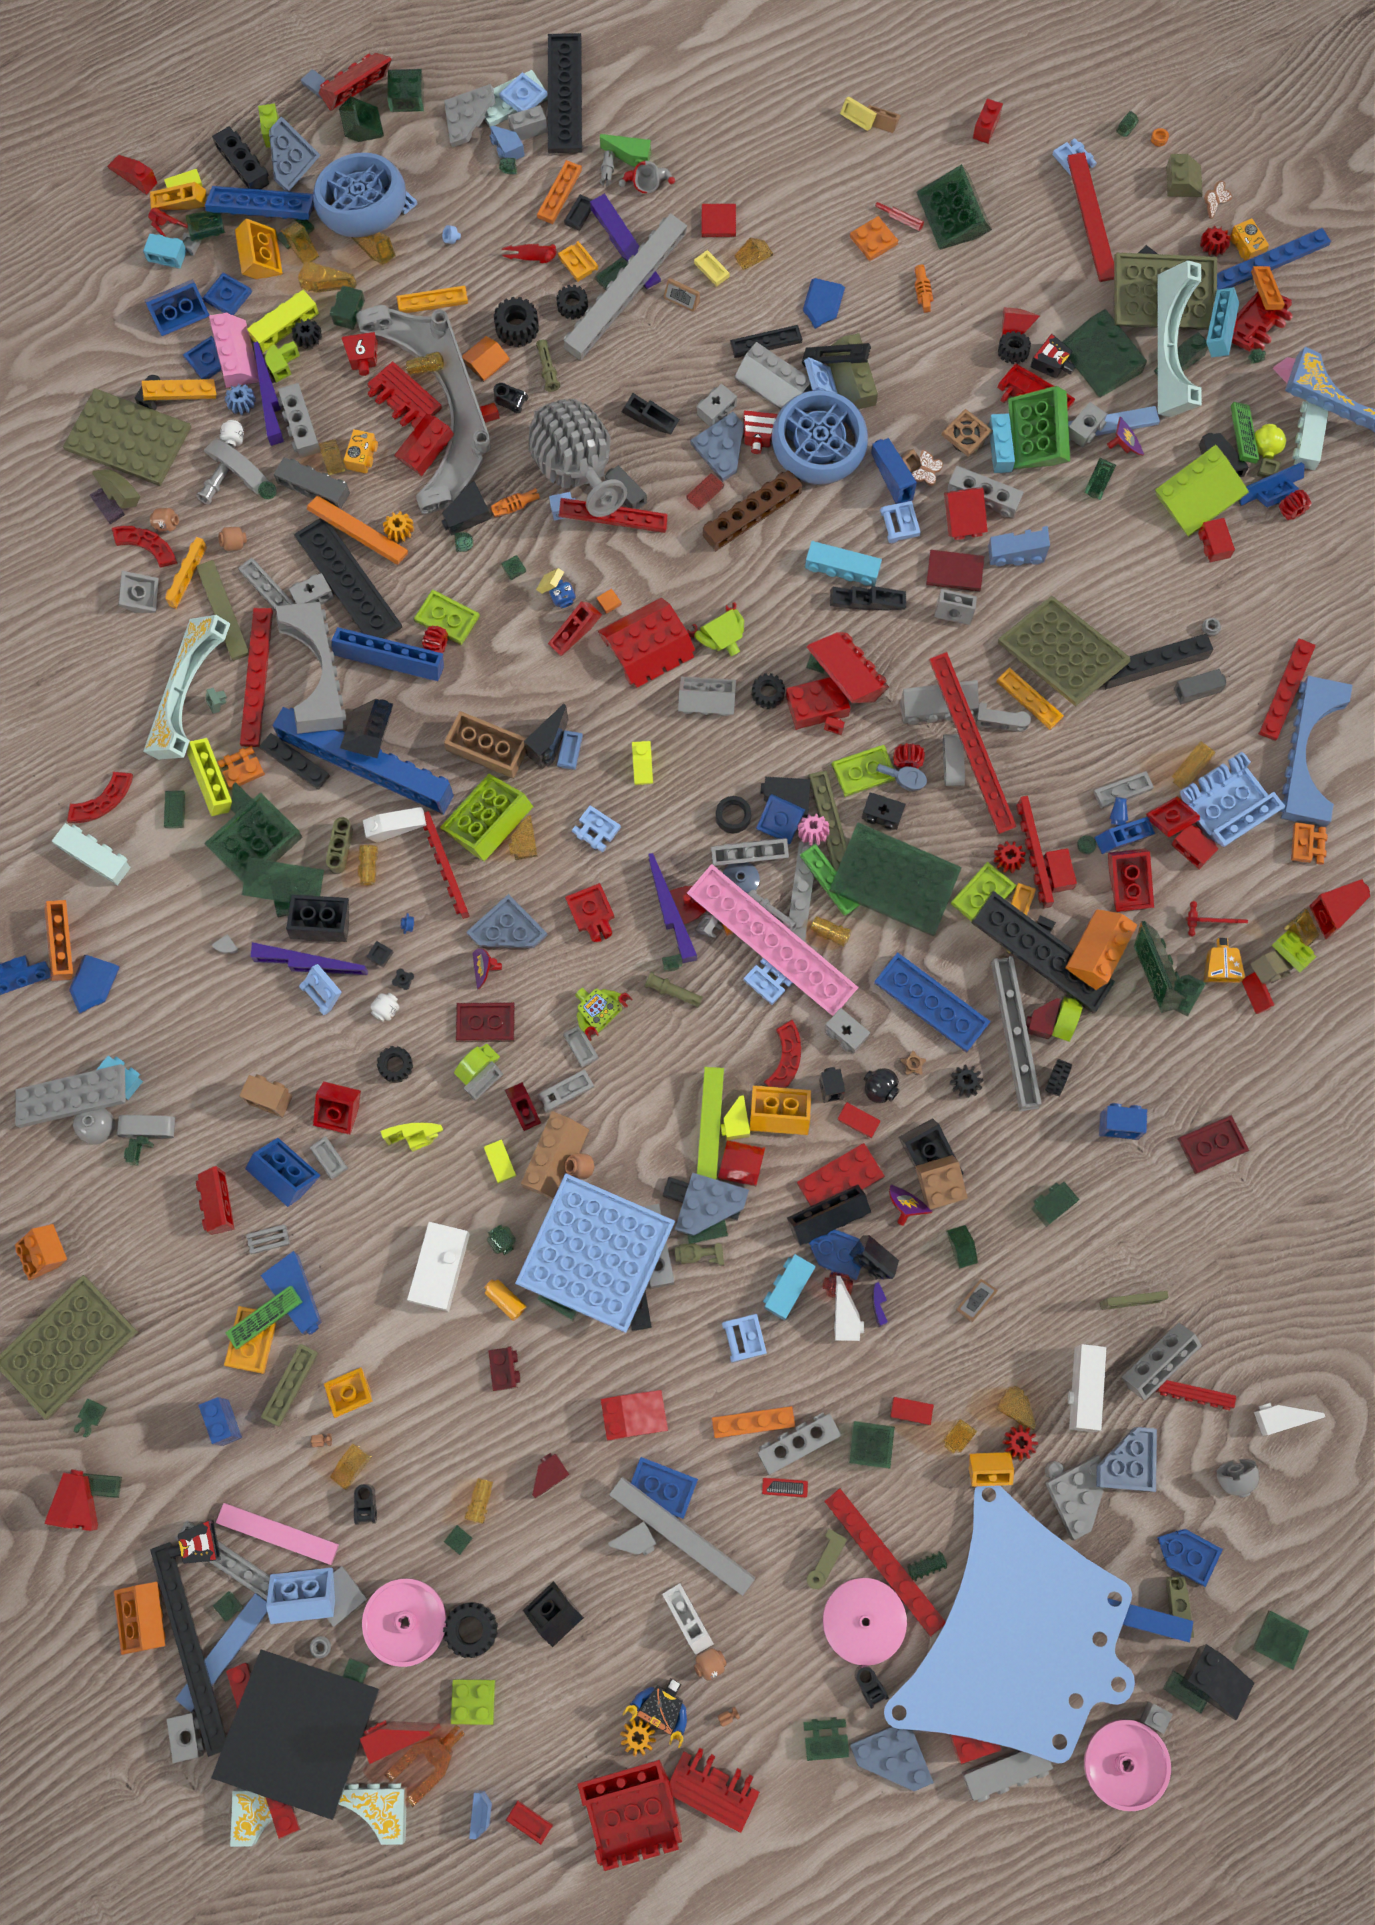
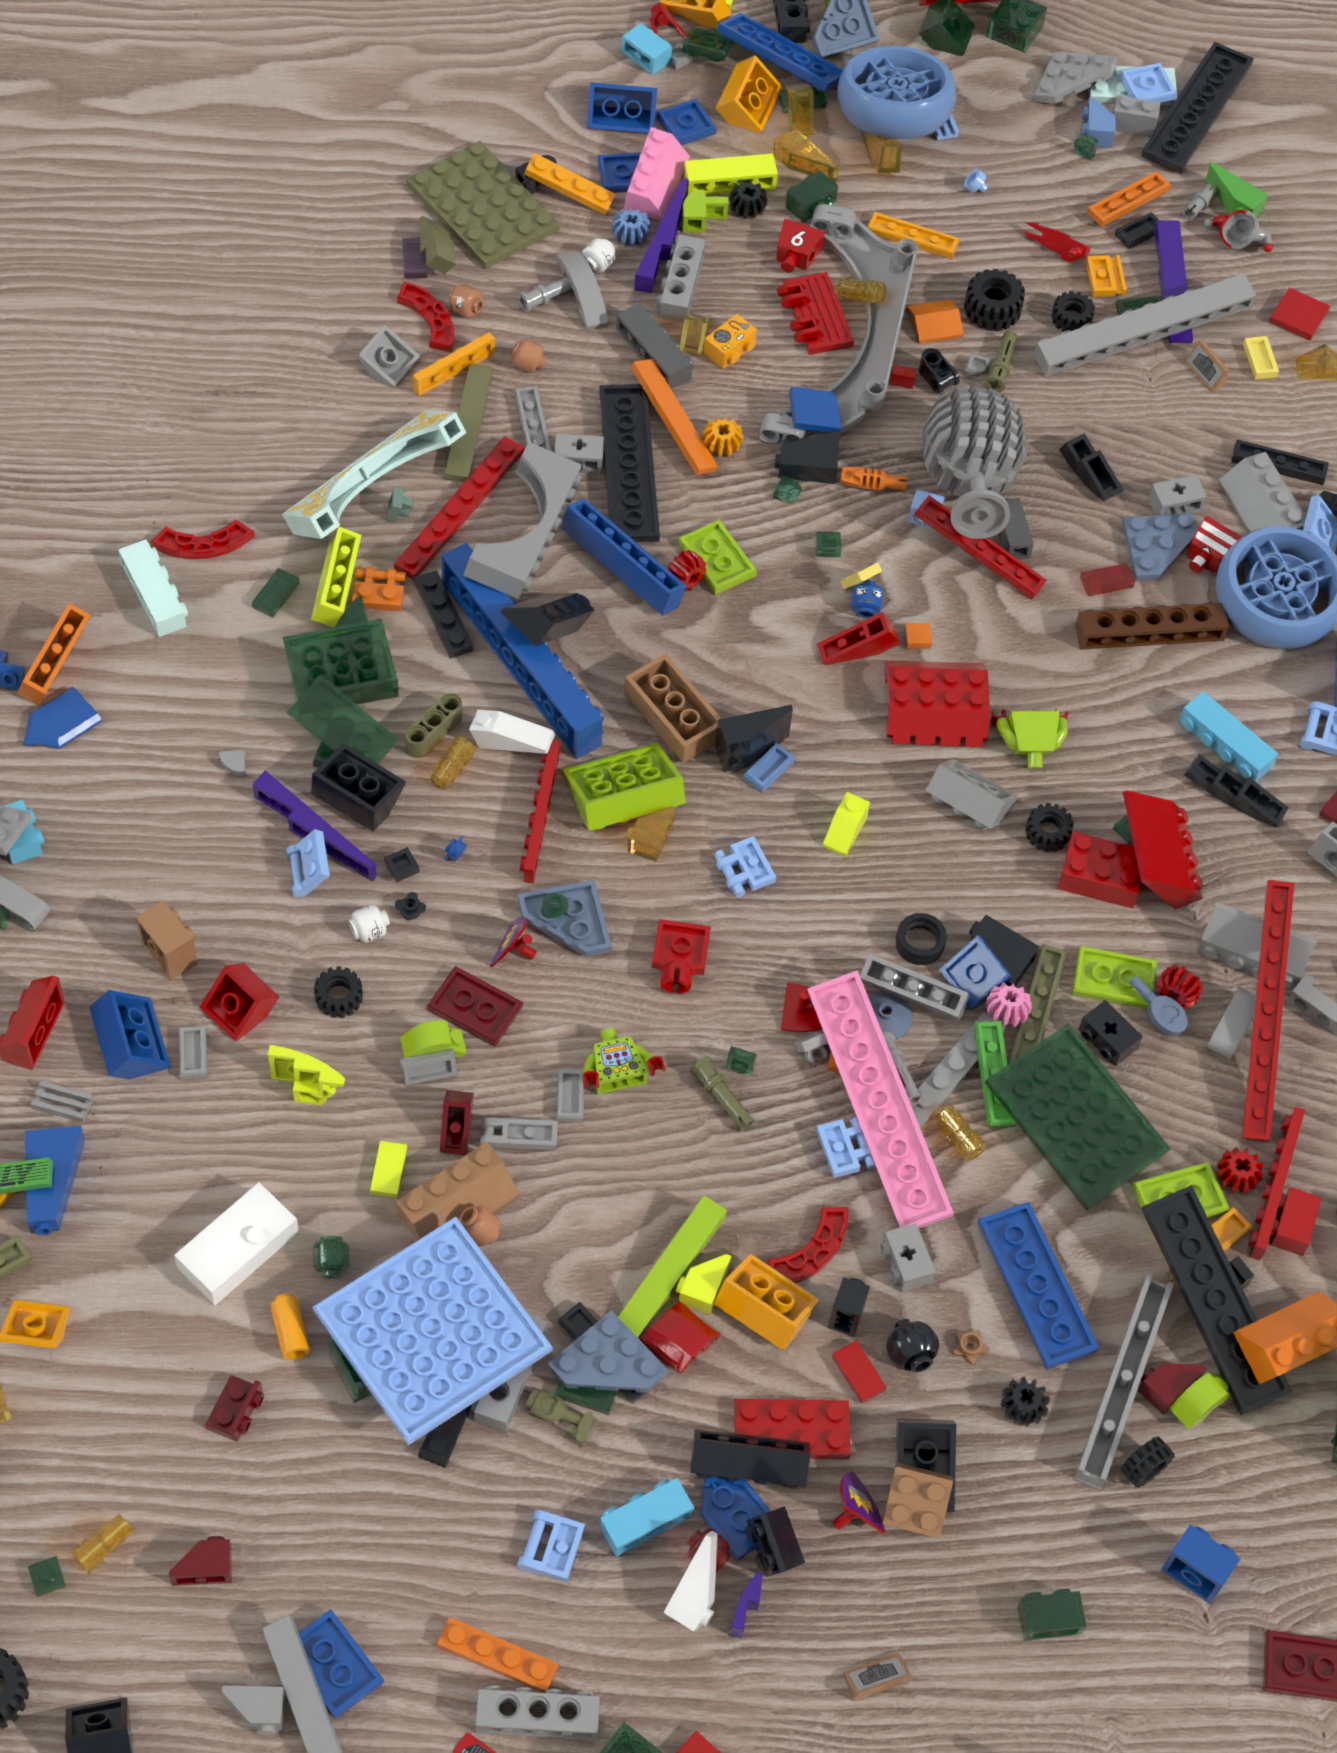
camera: 25 degrees right, 15 degrees down
(267, 490) = (600, 329): clear green plate -> none
(424, 444) = (809, 368): red slope -> none
(448, 473) = (814, 410): none -> blue tile
(495, 932) = (555, 911): none -> clear green plate
(532, 377) = (977, 365): none -> light grey tile
(634, 1415) = (354, 1555): slope -> none
(671, 915) = (773, 1008): dark purple slope -> none
(834, 725) = (1107, 906): red plate -> none
(962, 1246) = (898, 1600): clear green slope -> none

